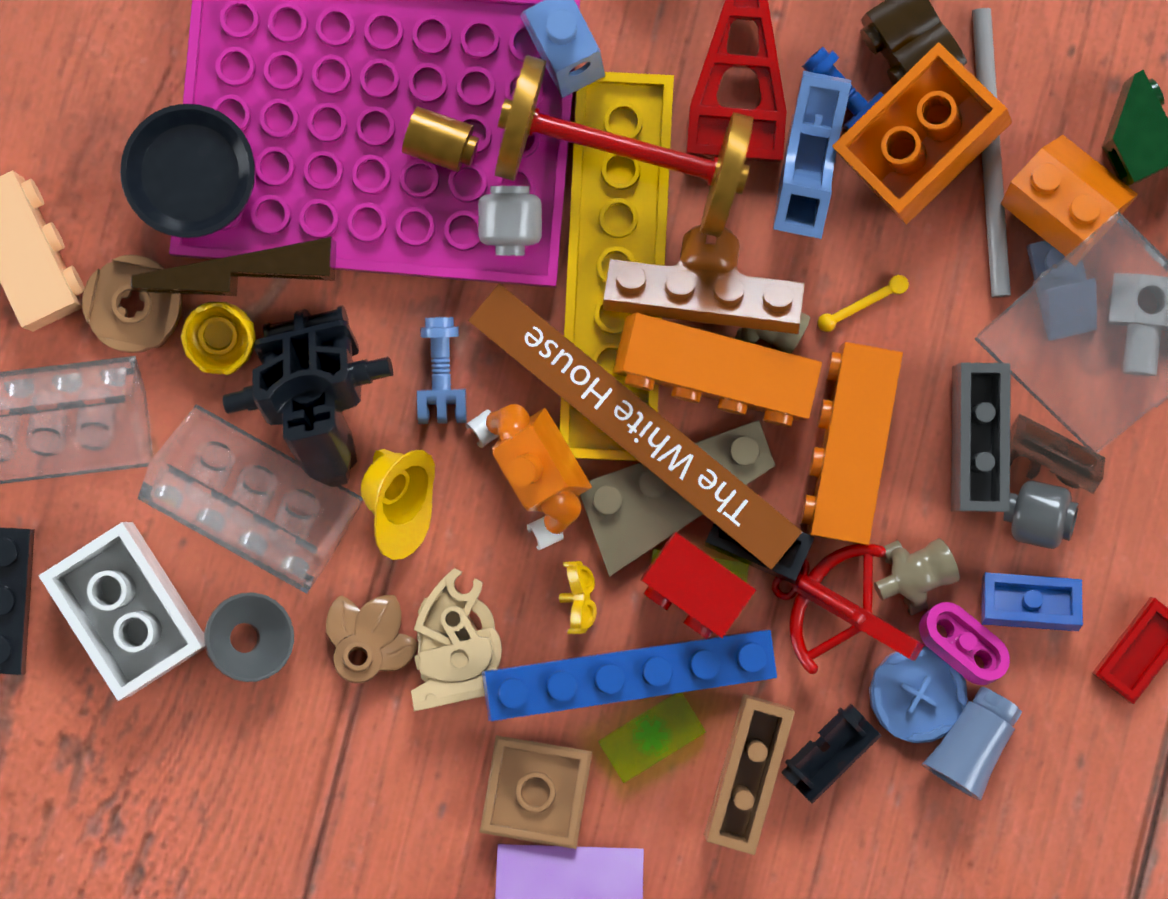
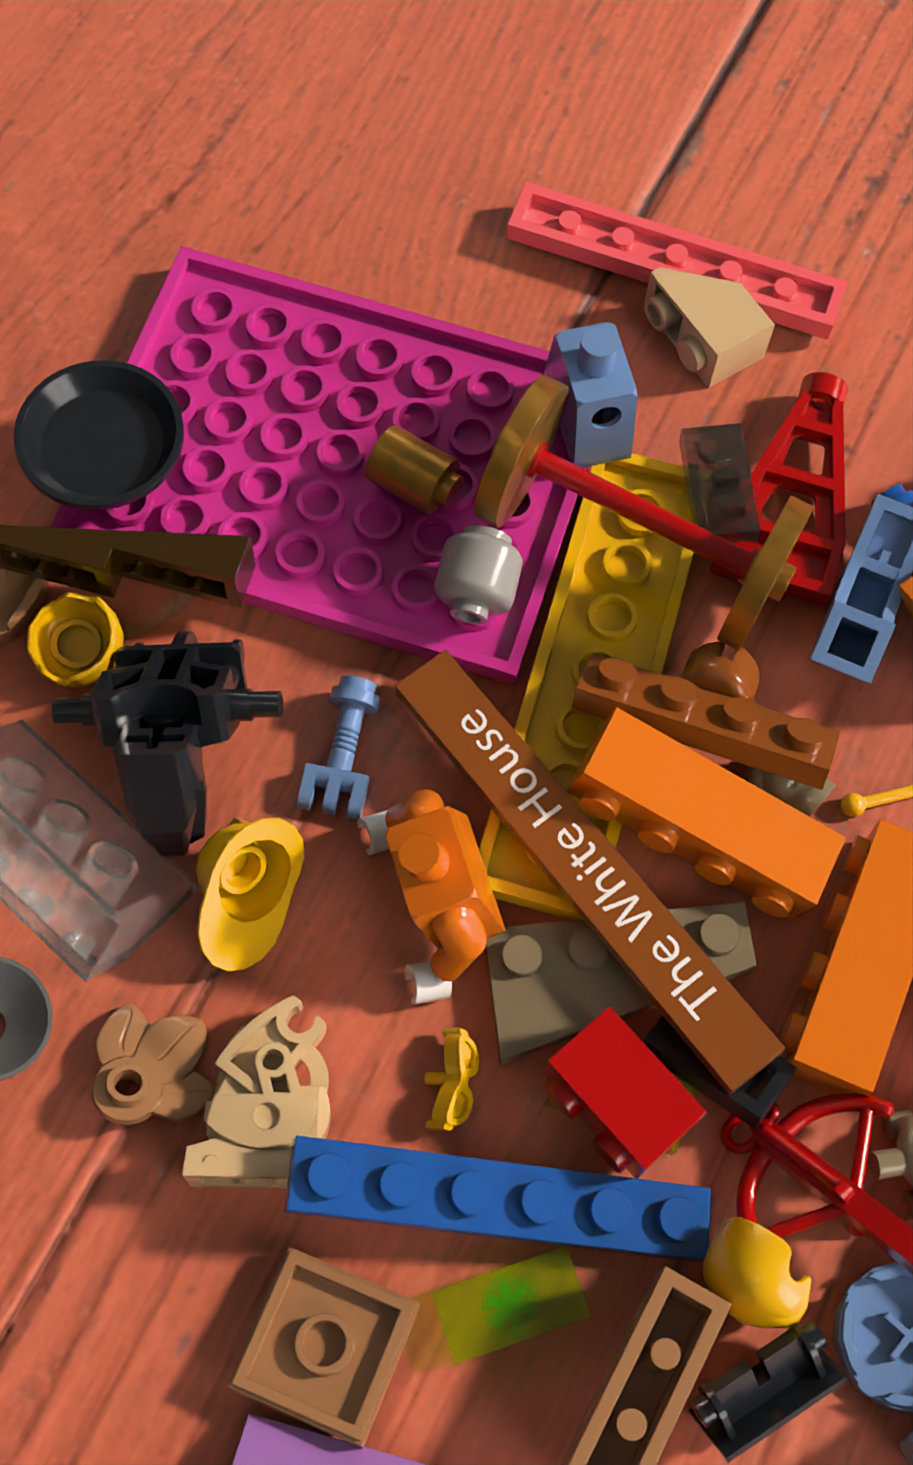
camera: 10 degrees right, 20 degrees down
(679, 87) = (720, 481): none -> clear smoke plate
(805, 686) = (752, 1273): none -> yellow hair

